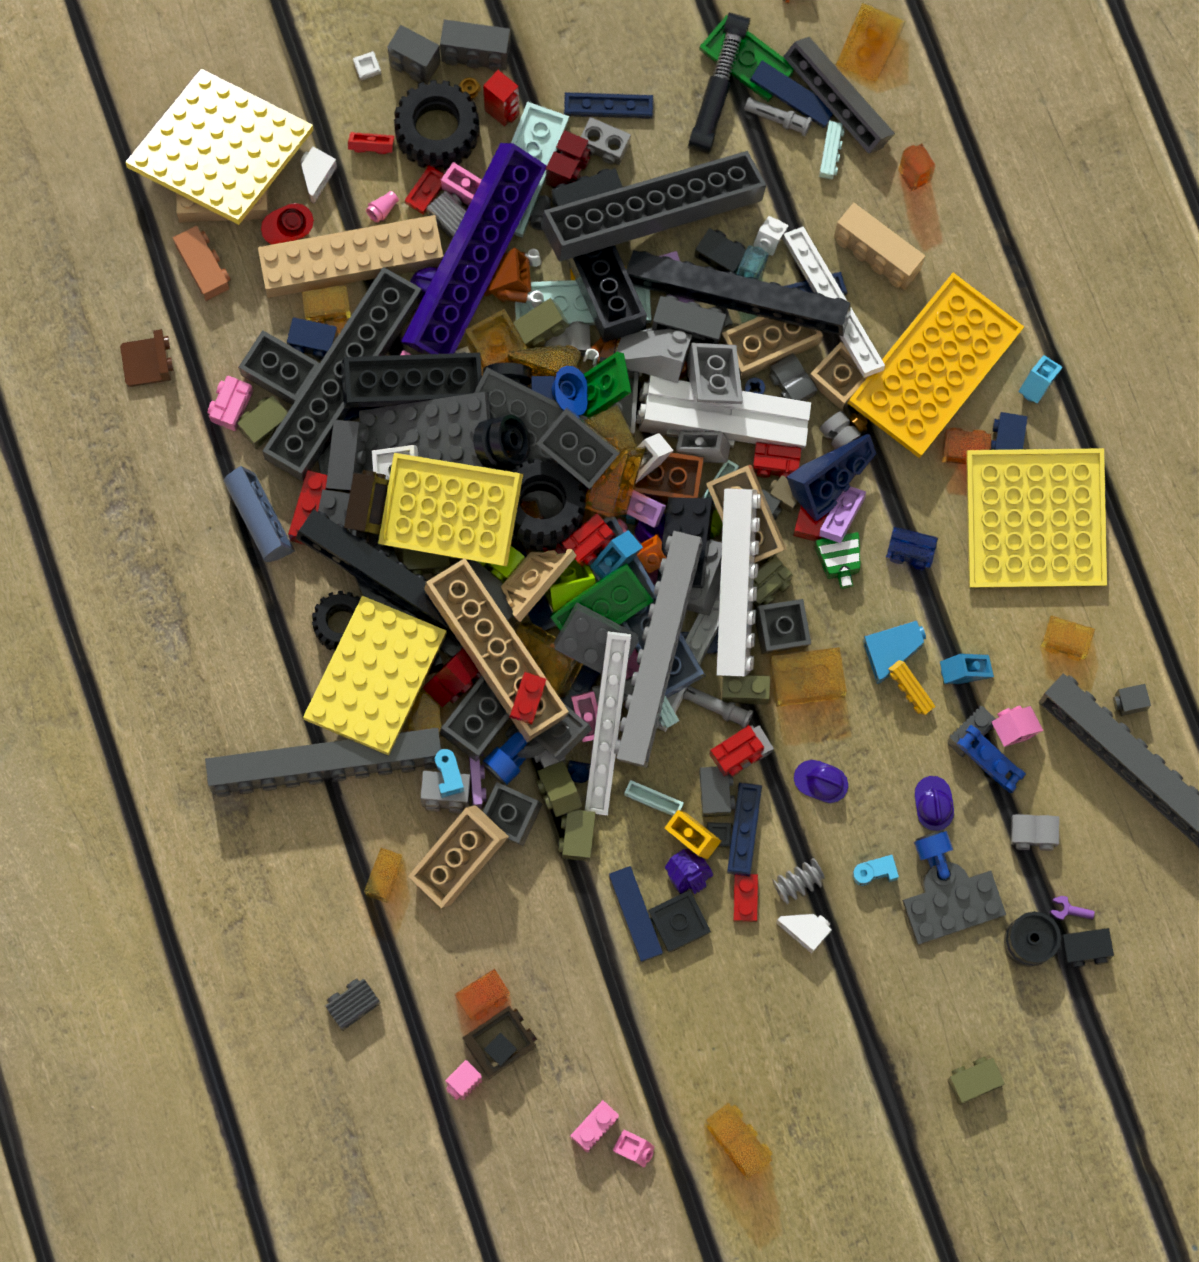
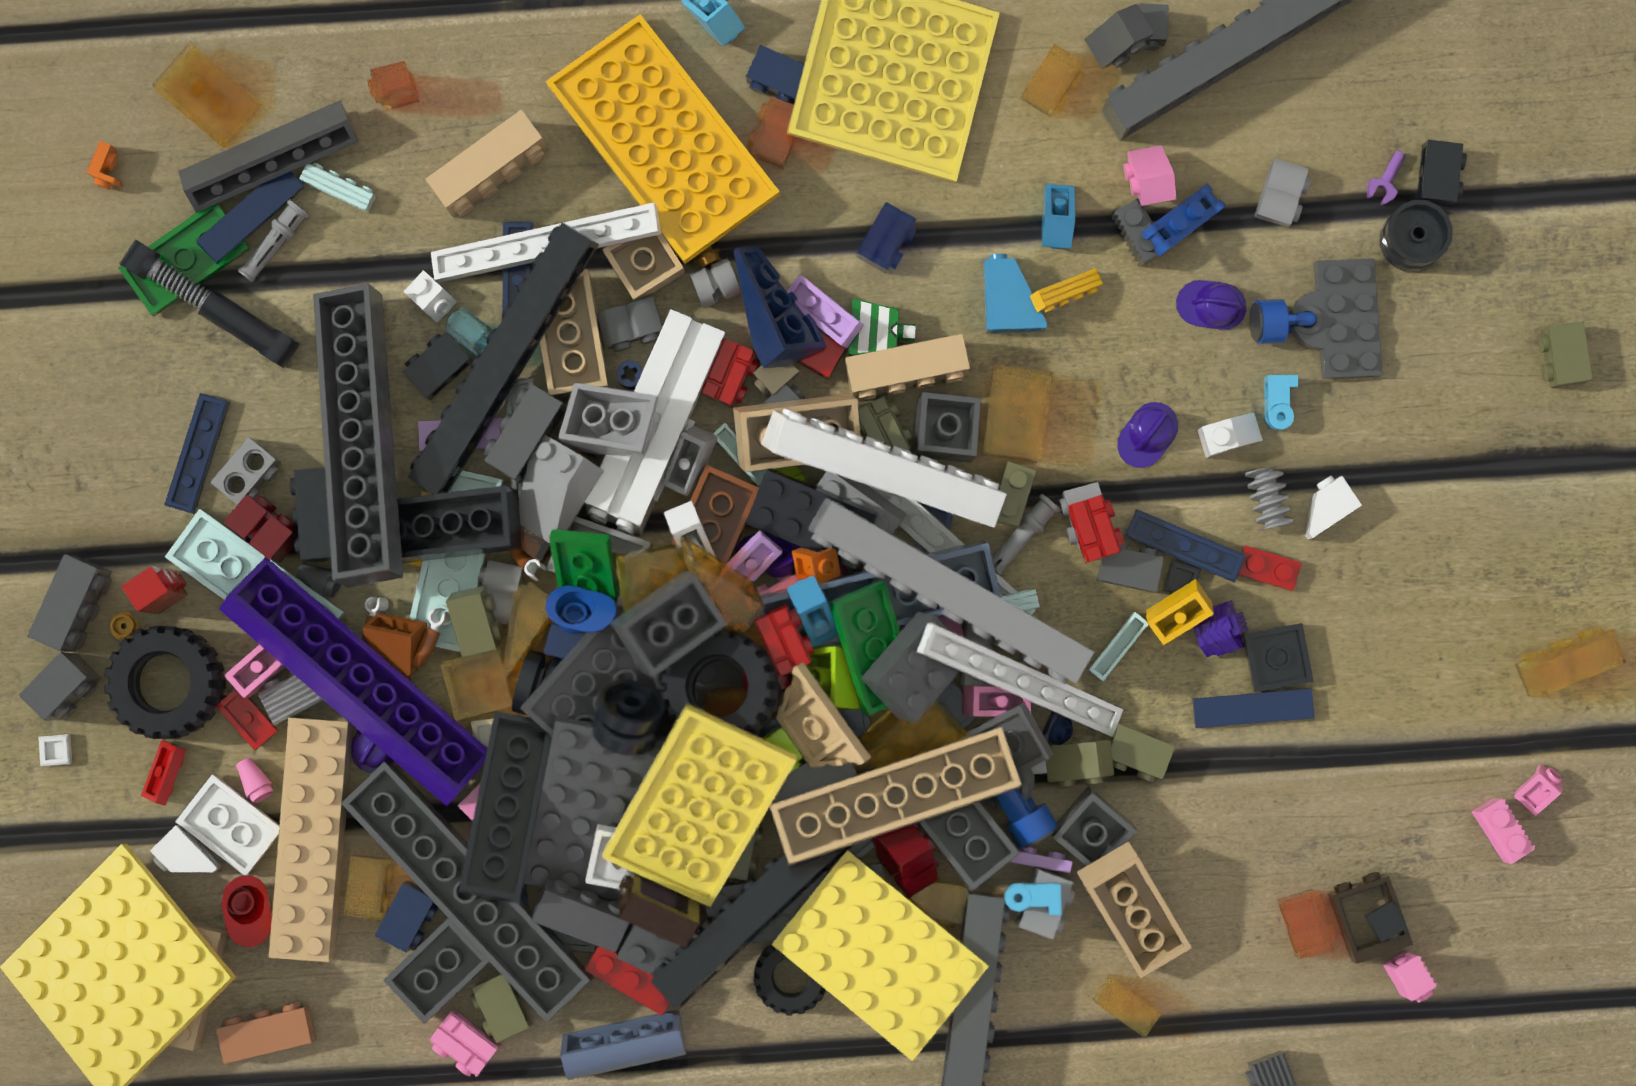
camera: 70 degrees left, 10 degrees up
(345, 197) = (229, 825): none -> white plate
(528, 698) = (973, 774): red plate -> none
(818, 584) = (906, 367): none -> tan brick
(839, 840) = (1229, 434): none -> white slope
(1115, 675) = (1120, 36): none -> dark grey brick

